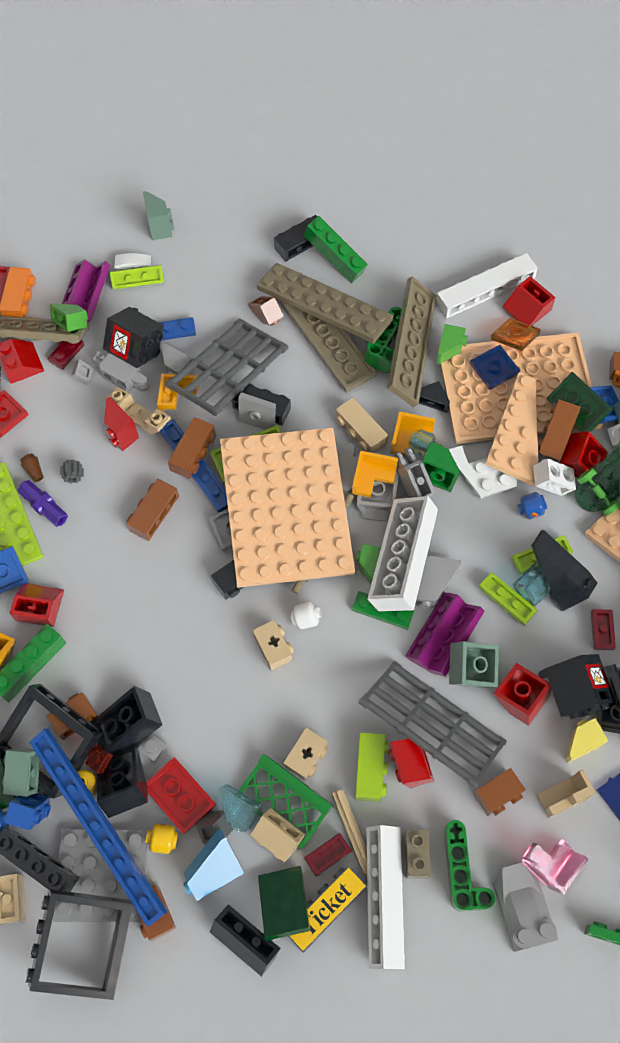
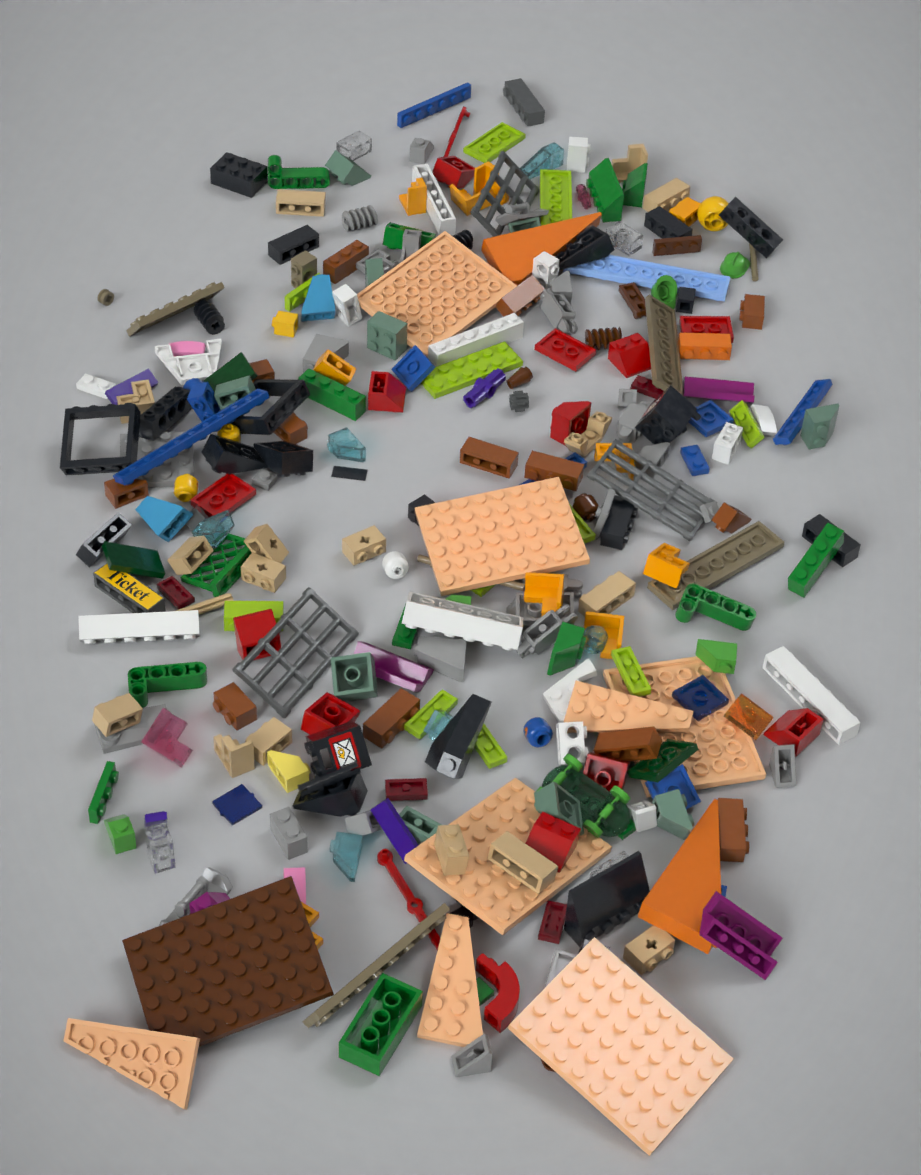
camera: 80 degrees right, 20 degrees down
(68, 316) = (679, 374): bright green slope -> none
(98, 759) = (249, 438): clear red plate -> none
(114, 653) = (346, 446): none -> clear light blue slope
(121, 300) = (711, 420): none -> blue plate
(127, 229) = (795, 421): none -> blue plate
(150, 655) = (349, 473): none -> black sticker
(163, 295) = (727, 443): none -> white brick
(238, 427) = (586, 506): none -> reddish brown head
(257, 323) = (709, 510): none -> light grey plate
(276, 746) = (266, 543): none -> tan brick
(325, 302) = (744, 554): dark tan plate -> none
(330, 371) = (665, 566): none -> light orange panel
(412, 342) = (712, 622): dark tan plate -> none
(417, 854) = (176, 648): dark tan brick -> none
(434, 397) = (656, 649): black slope -> none
(467, 416) = (631, 671): none -> lime plate
(515, 635) = (390, 718): none -> dark orange brick
(533, 920) = (117, 714): none -> tan brick
(546, 759) = (271, 736): none -> tan brick
(568, 319) = (783, 765): none -> light grey slope

